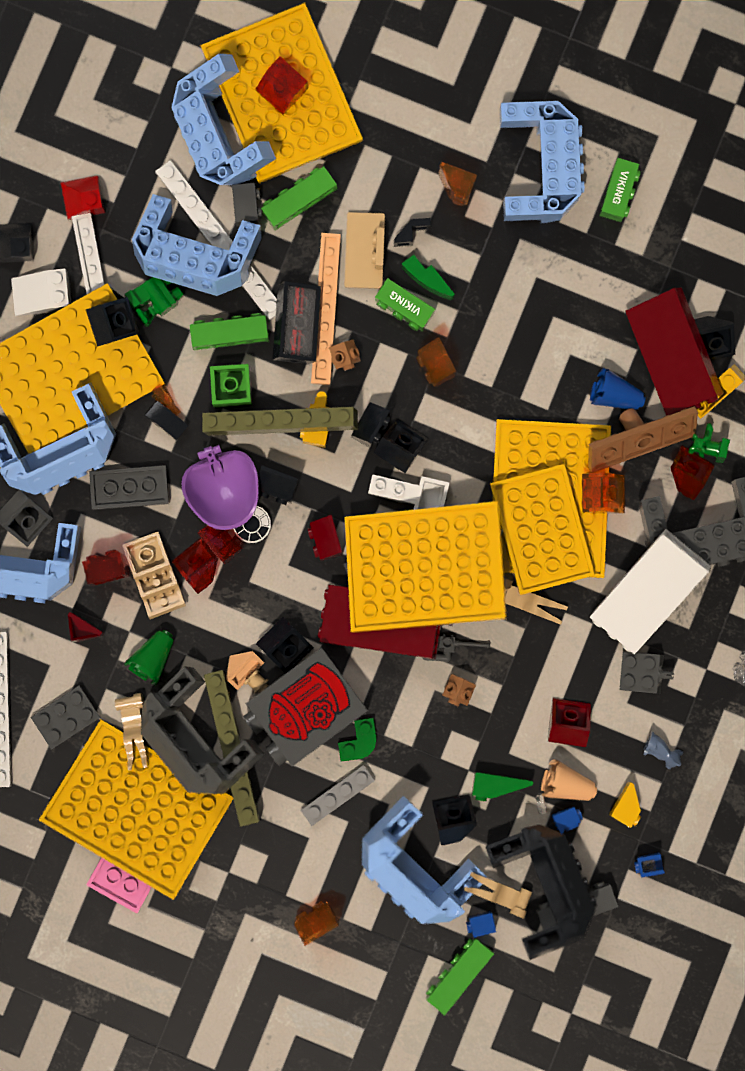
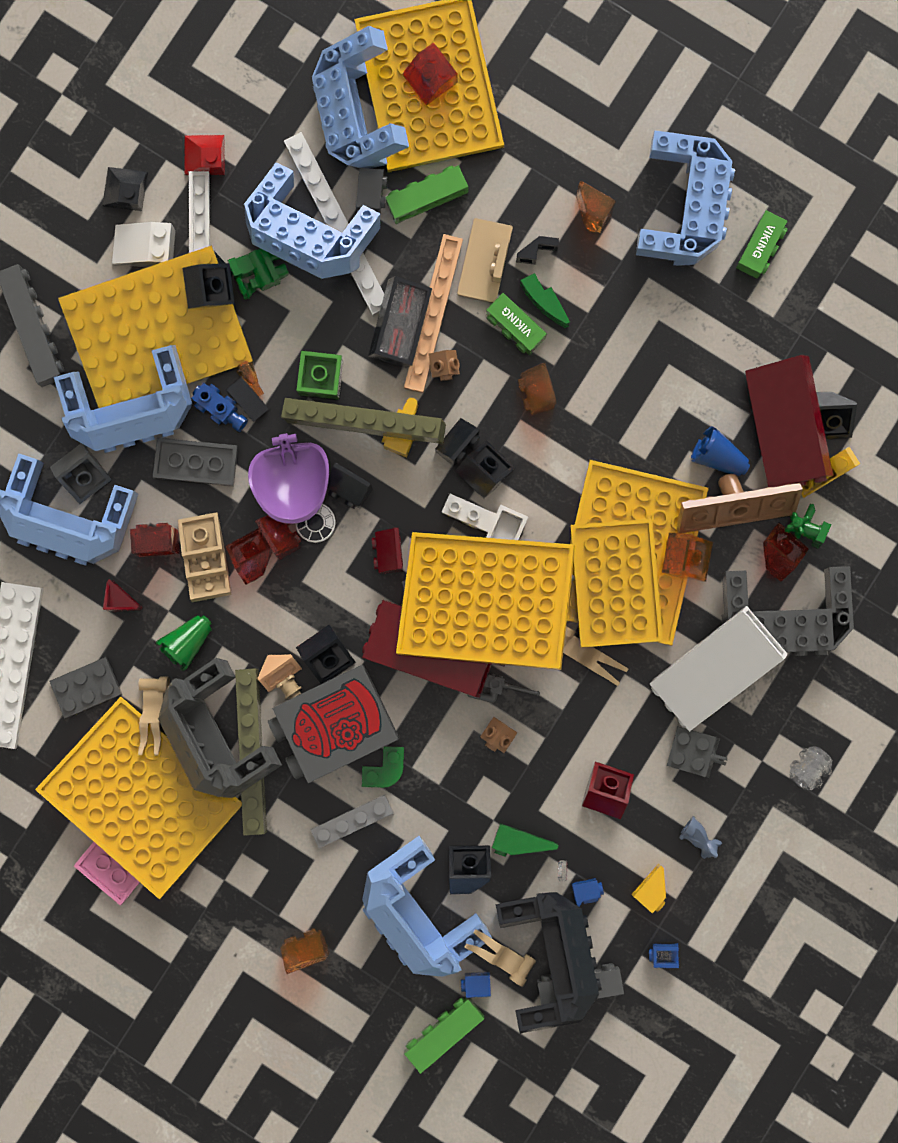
camera: 20 degrees right, 0 degrees up
(135, 430) = (213, 403): none -> blue brick
(229, 332) = (328, 319): bright green brick -> none
(566, 783) = (593, 854): light nougat cone -> none

